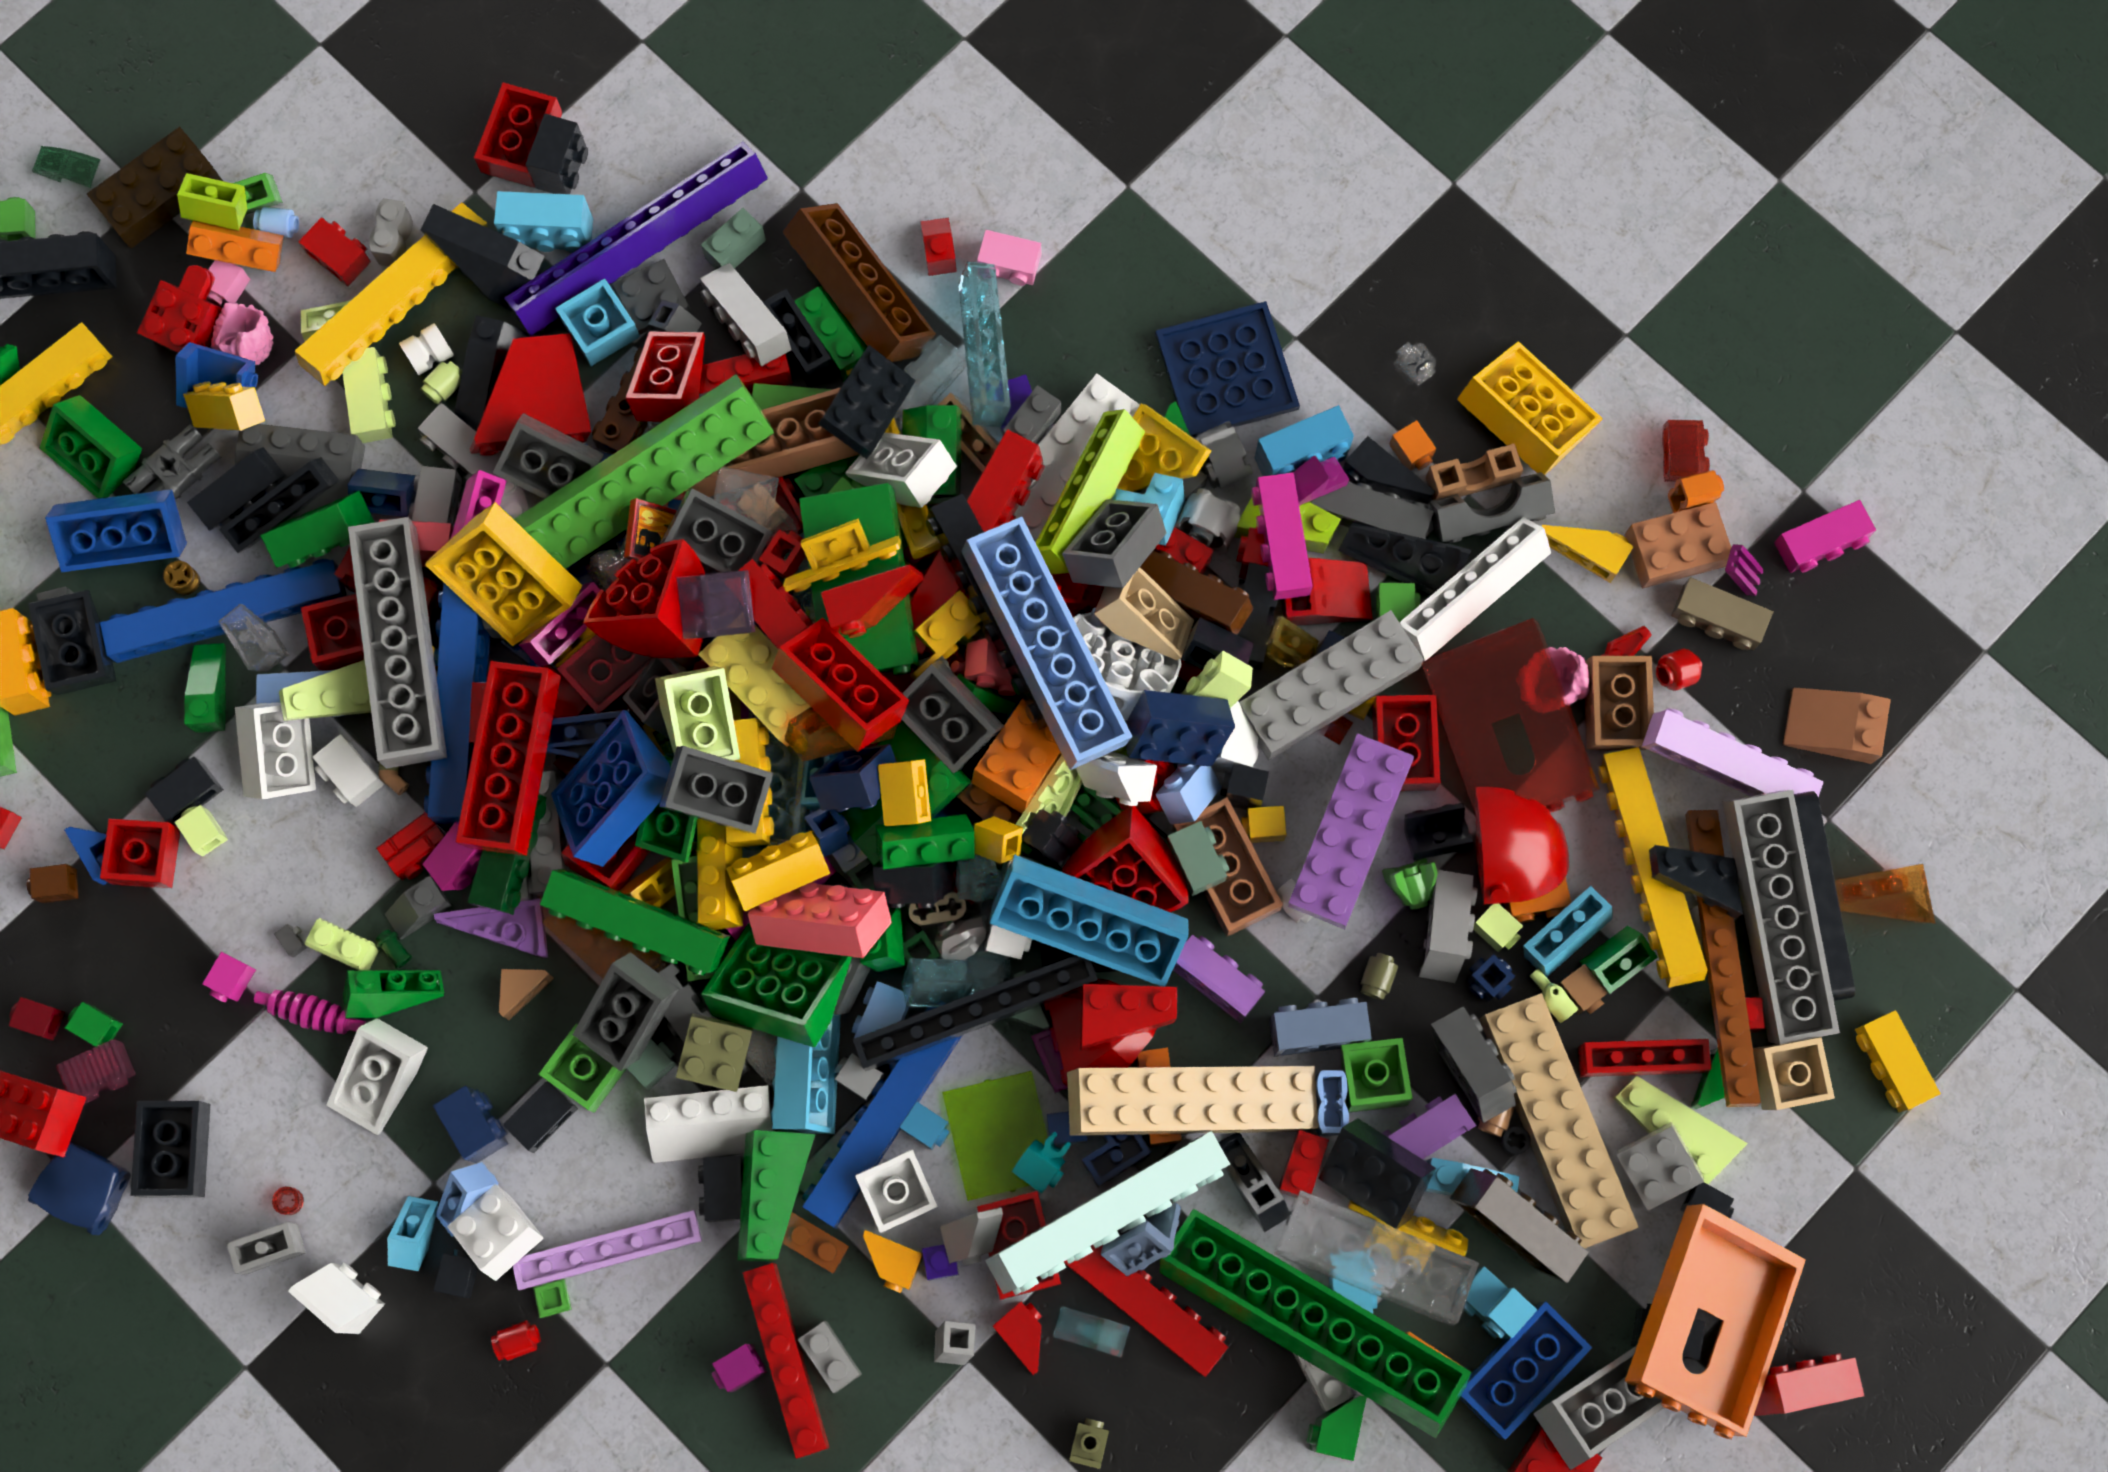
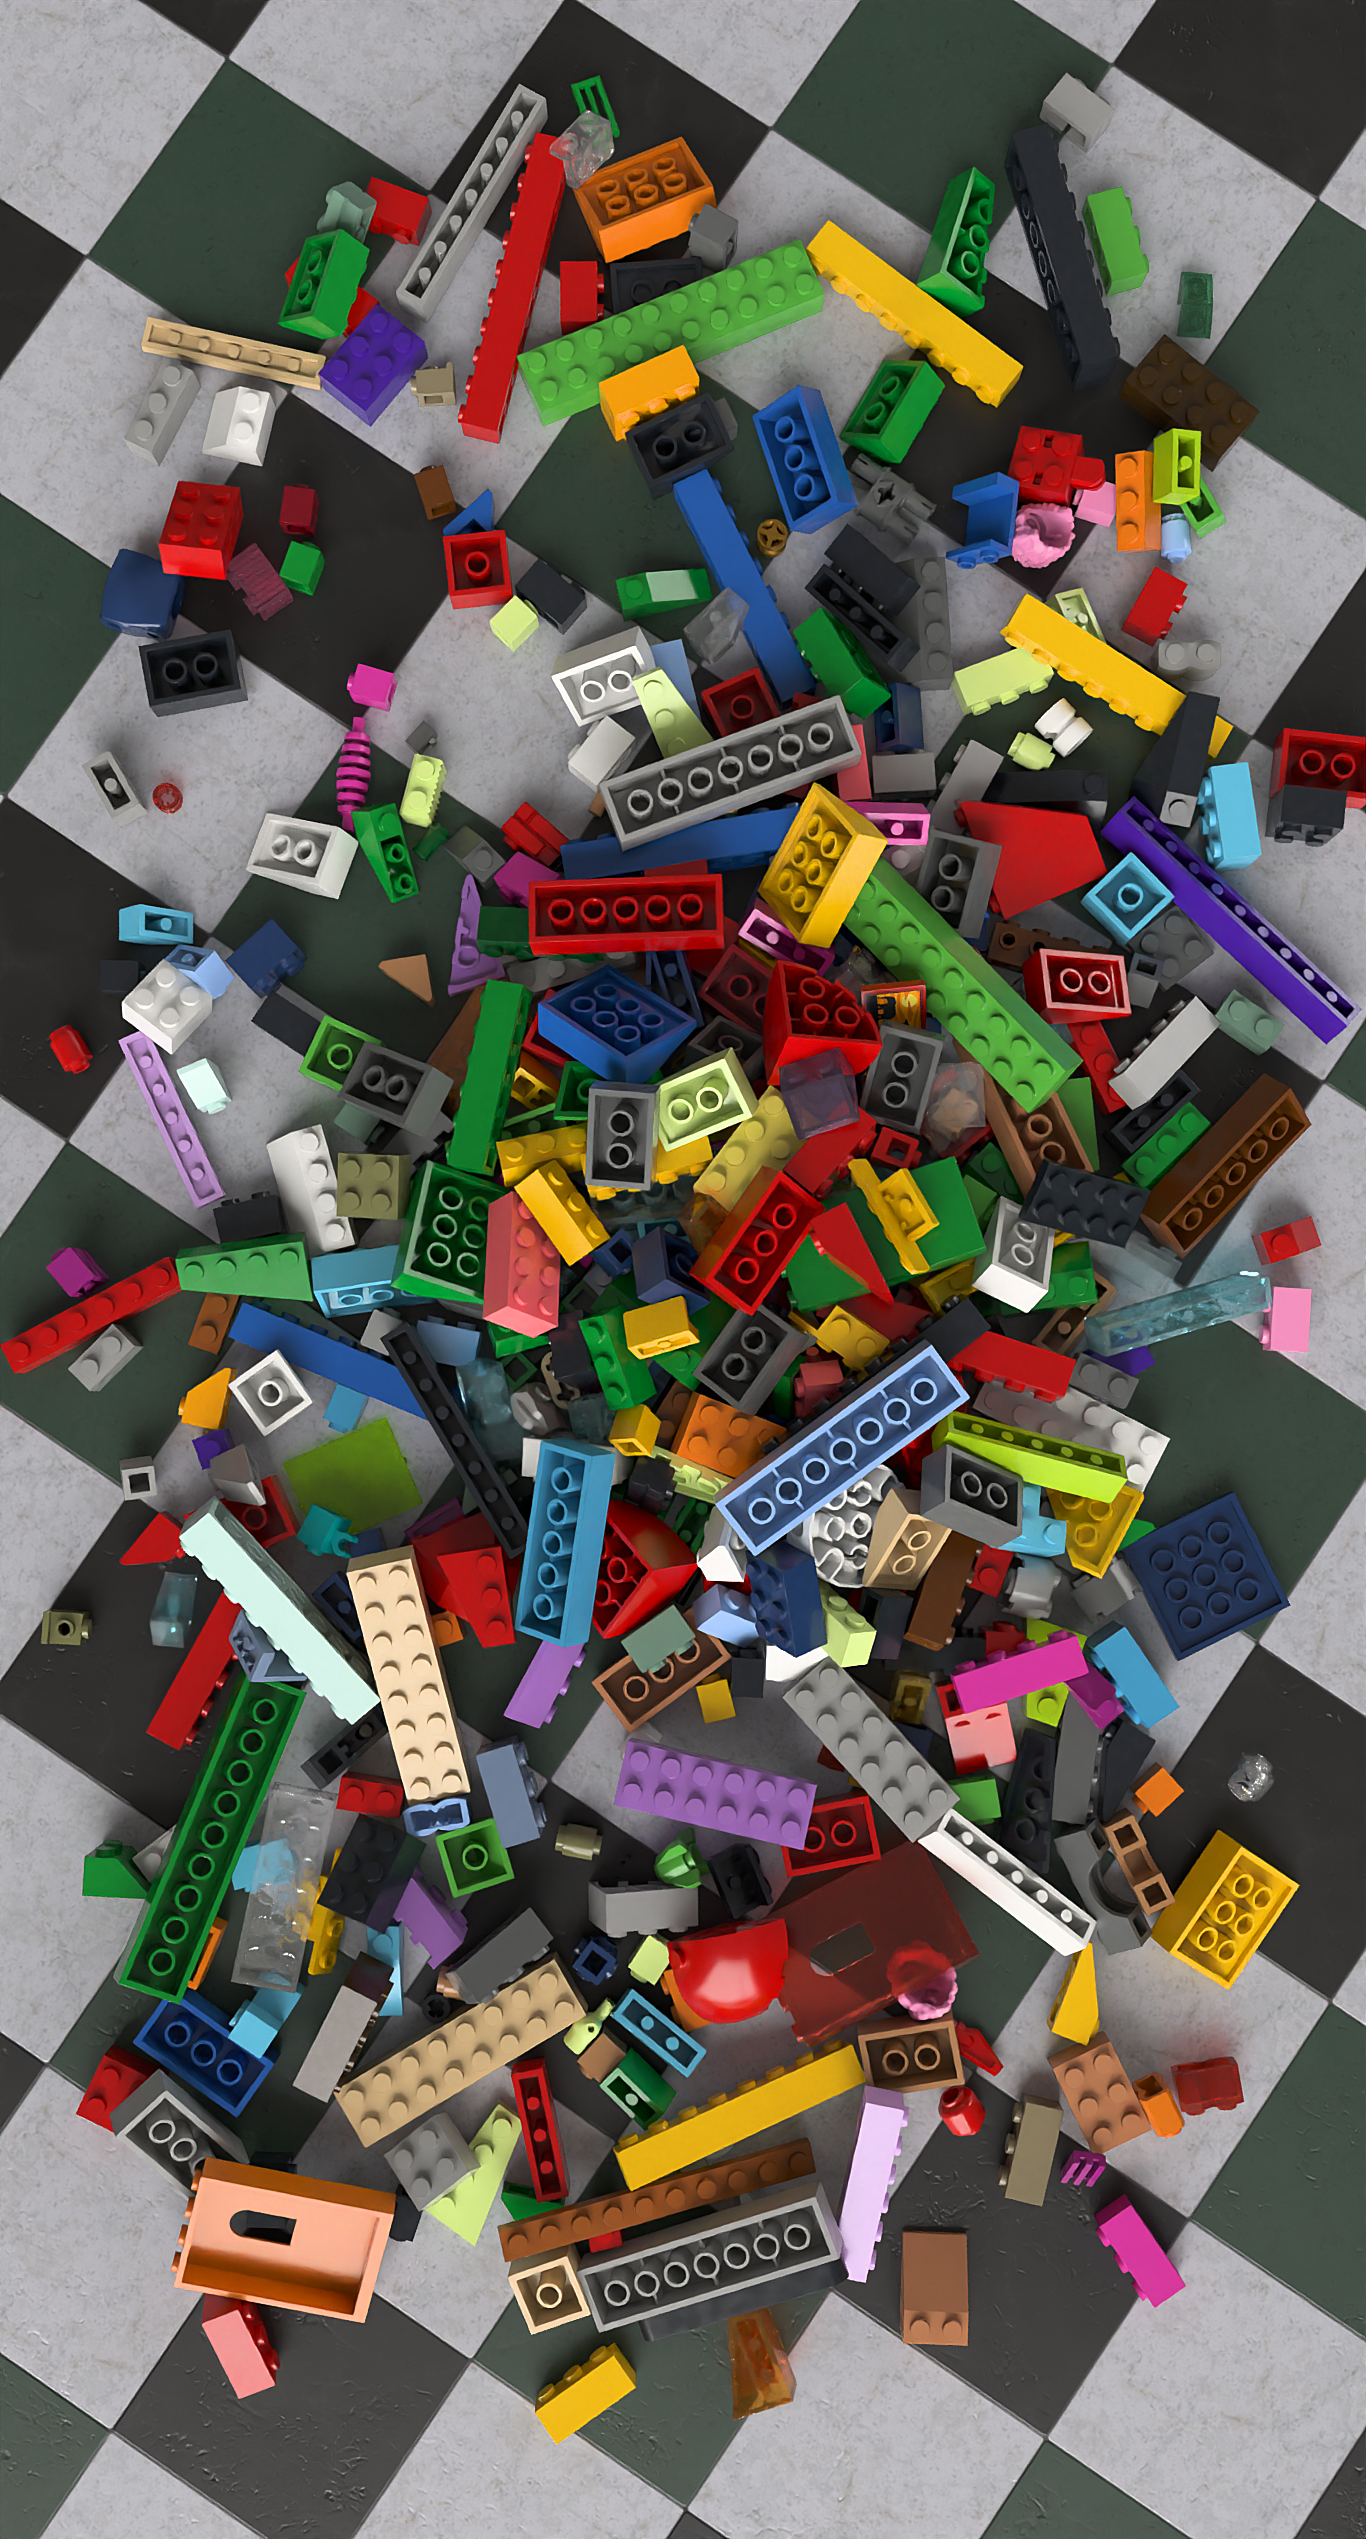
camera: 80 degrees right, 10 degrees up
(223, 406) = (955, 535): yellow brick -> none
(338, 1298) = (74, 869): white slope -> none
(552, 1298) = (117, 1075): bright green tile -> none
(582, 1207) = (205, 1085): none -> light aqua slope
(1700, 873) = (735, 2166): black wing -> none

